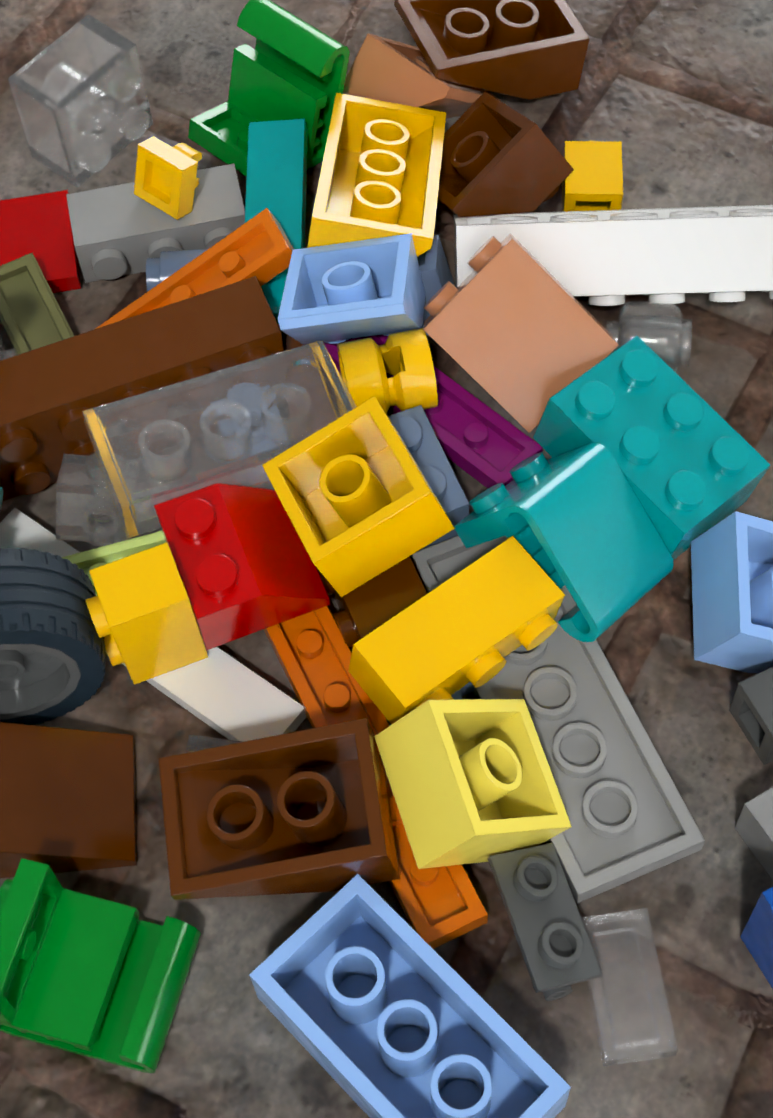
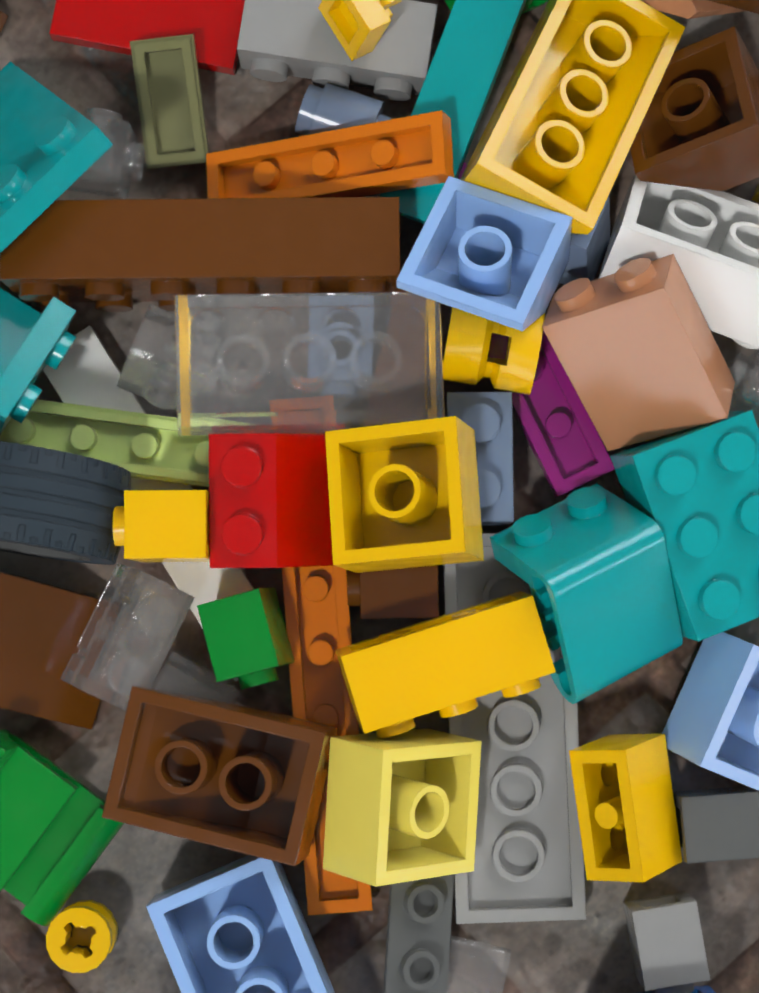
camera: 15 degrees right, 25 degrees up
(141, 722) = (127, 636): none -> clear brick
(205, 1075) = (93, 928): none -> yellow wheel
(256, 691) = (246, 637): none -> green brick
(690, 714) = (625, 807): none -> yellow brick

